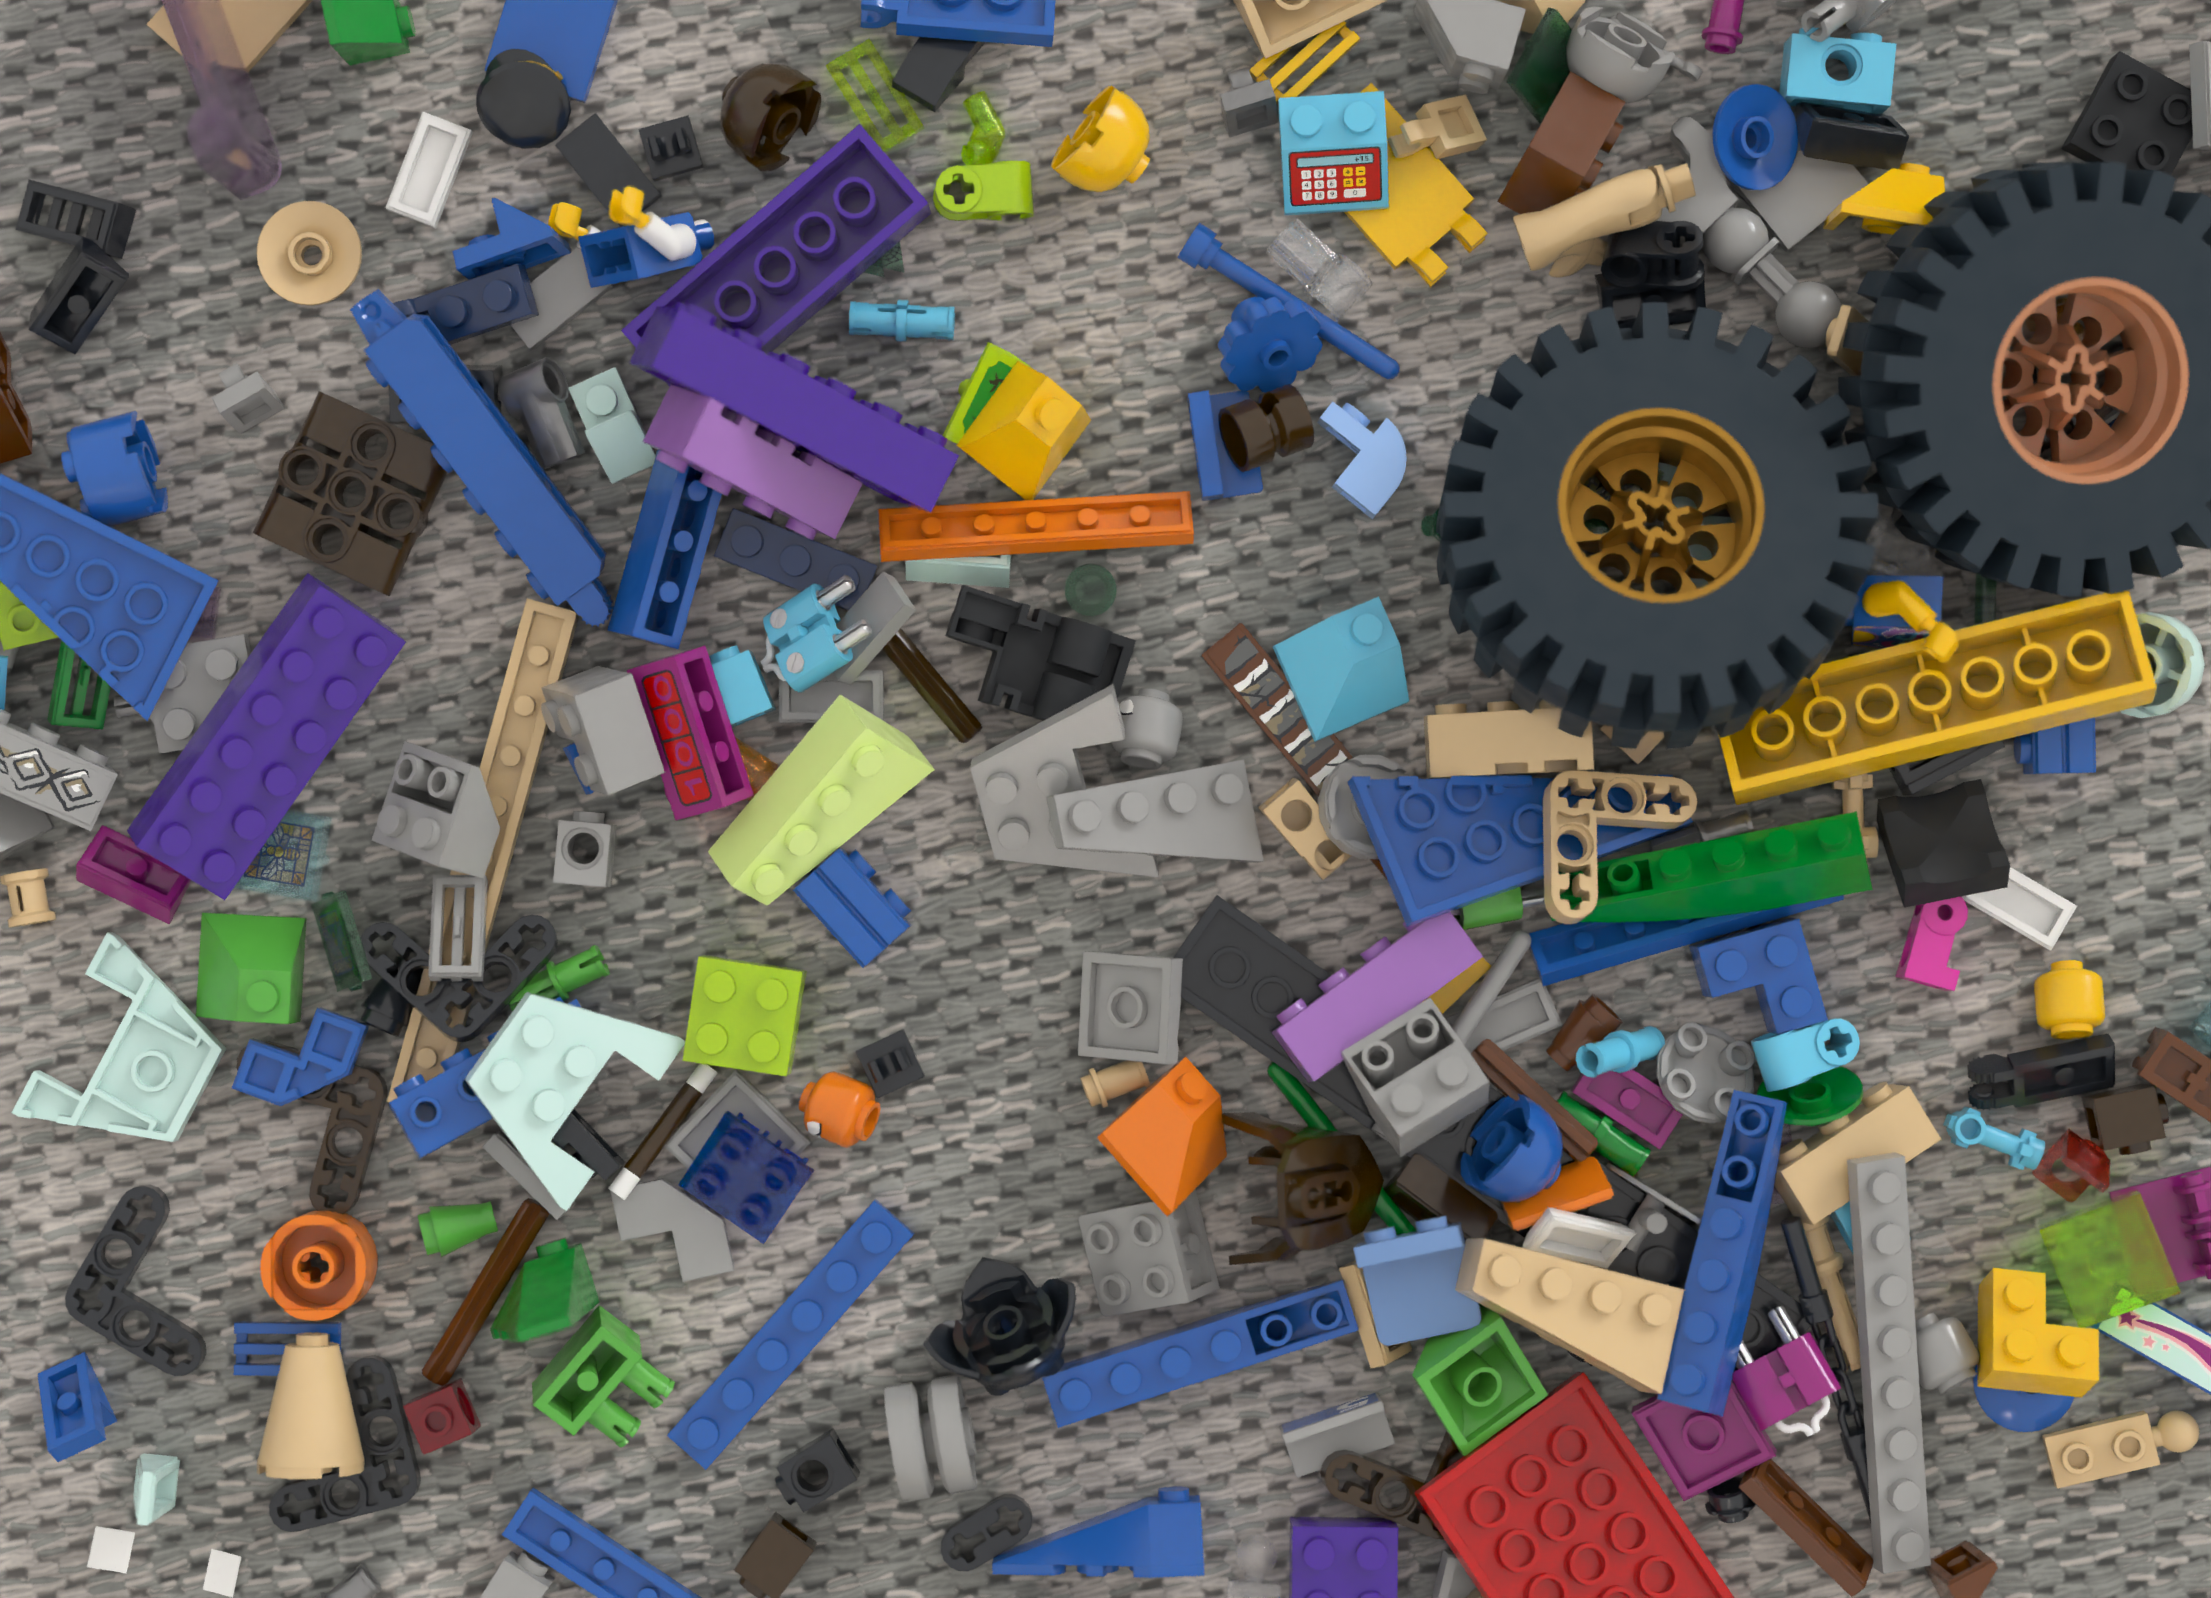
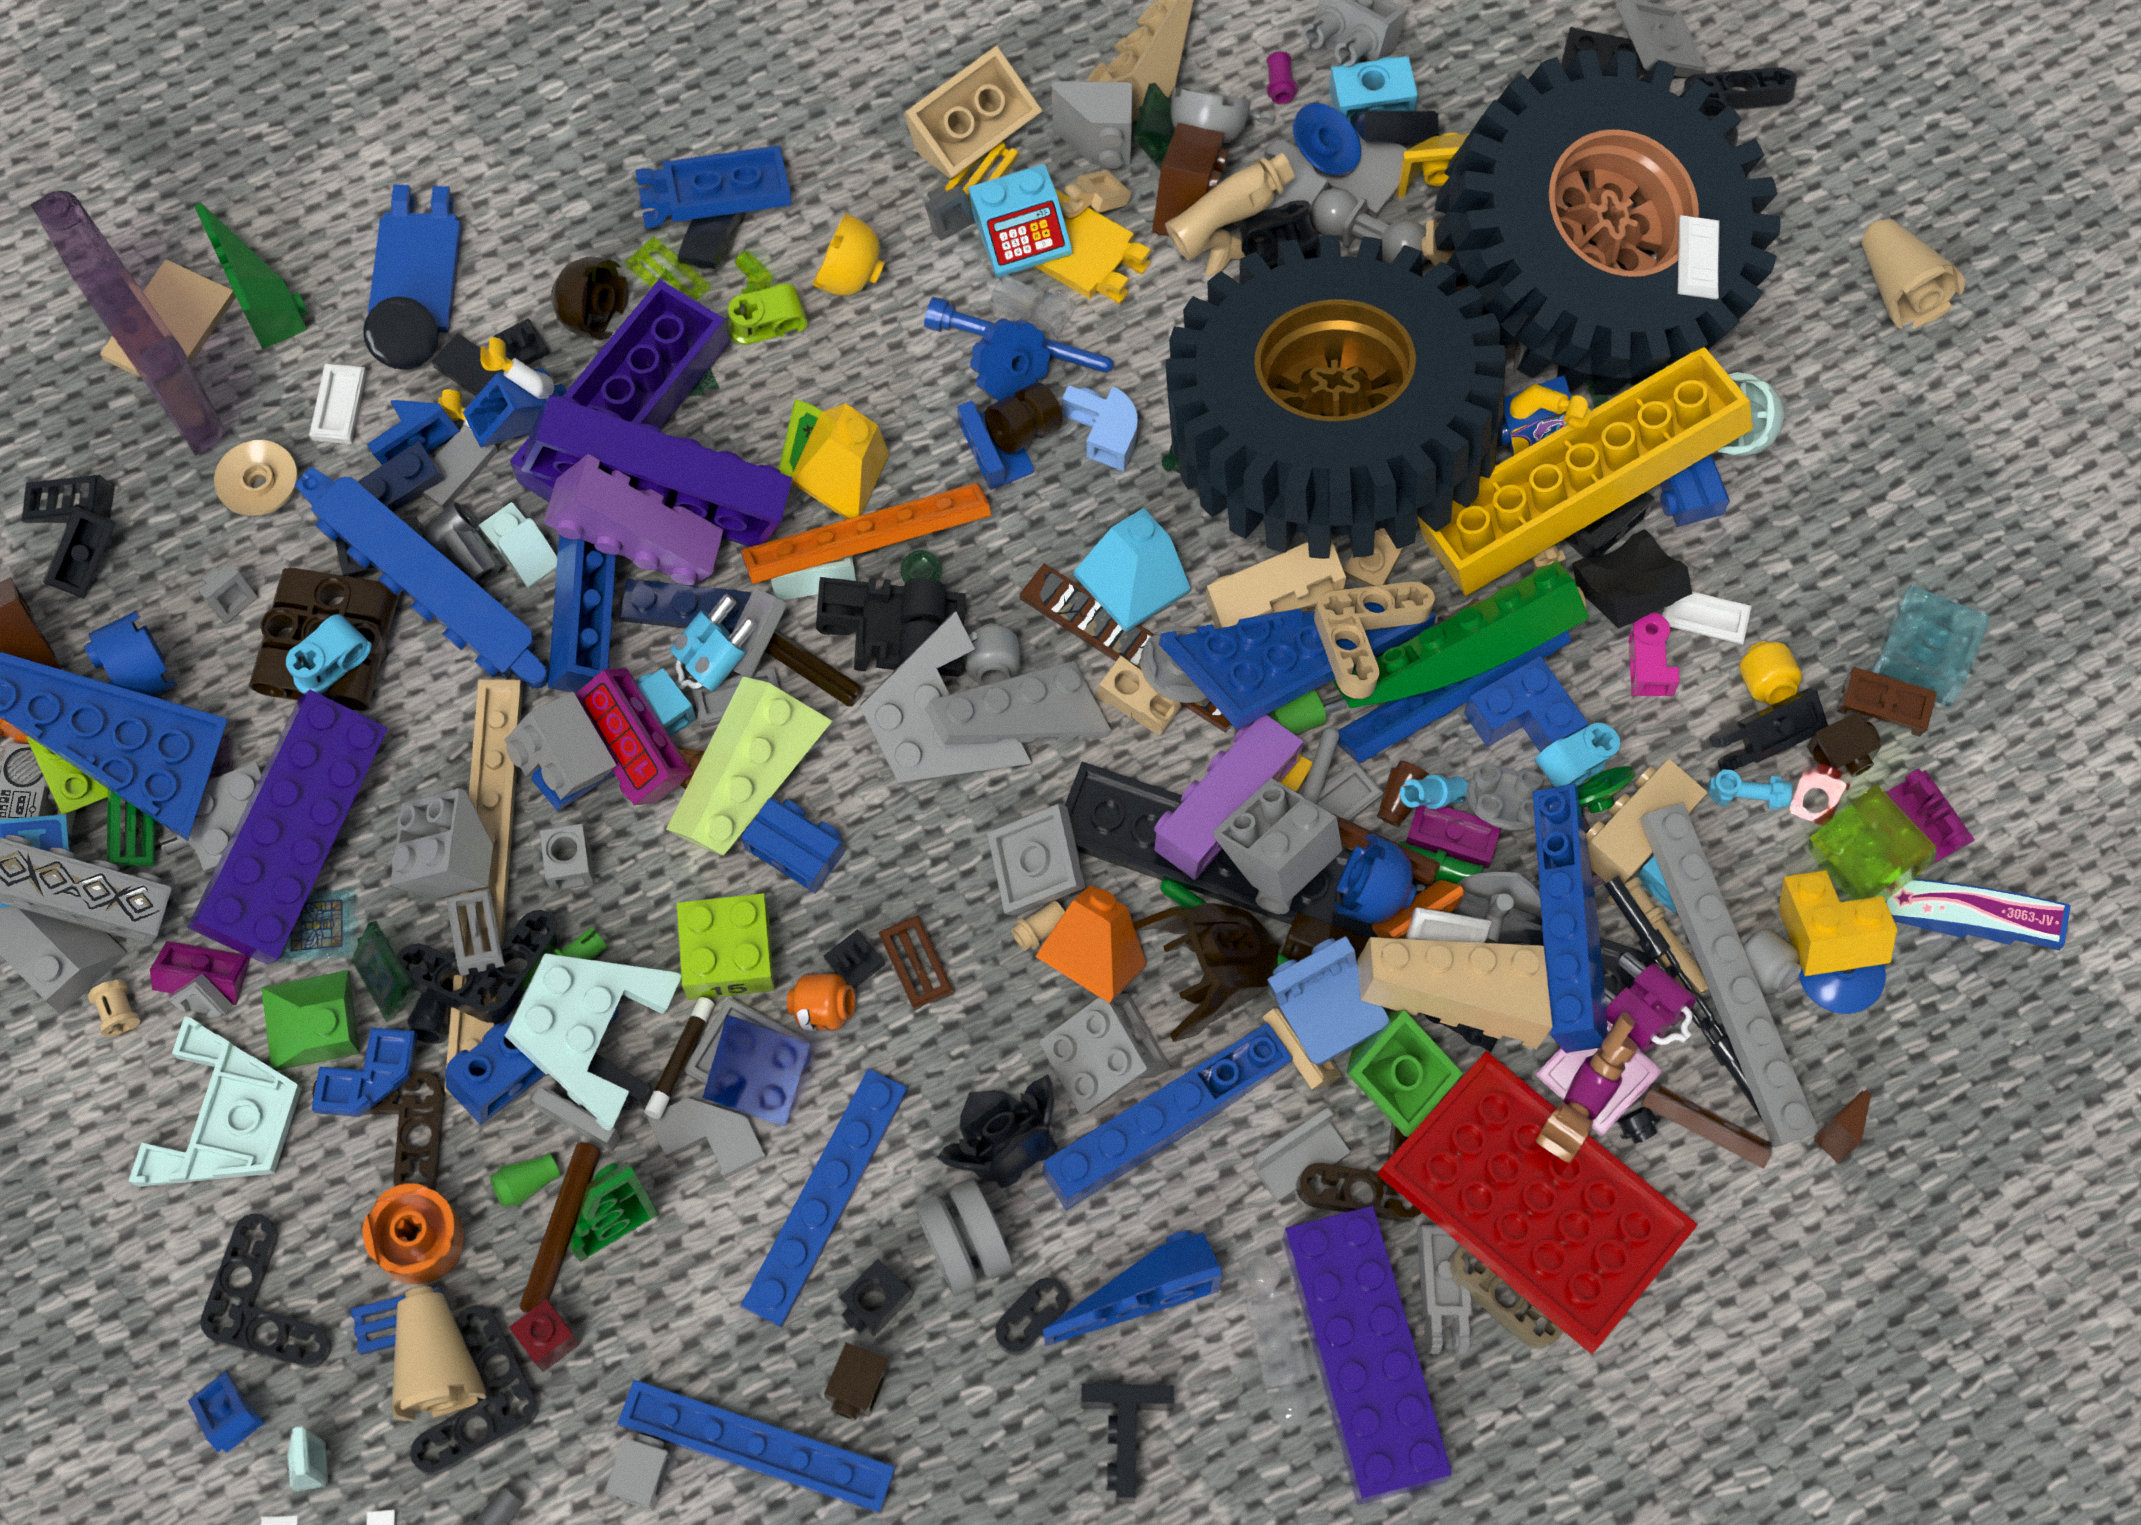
camera: 15 degrees left, 20 degrees down
(131, 909) = (200, 997): none -> light grey tile
(359, 531) = (327, 653): none -> medium azure piece
(587, 1371) = (663, 1255): bright green brick -> none
(901, 320) = (726, 418): medium azure pin -> none
(953, 1041) = (931, 995): none -> reddish brown tile
(1680, 1466) = (1589, 1092): none -> medium nougat piece
(2116, 1446) = (1932, 1000): tan plate -> none
(2161, 473) = (1698, 257): none -> white tile

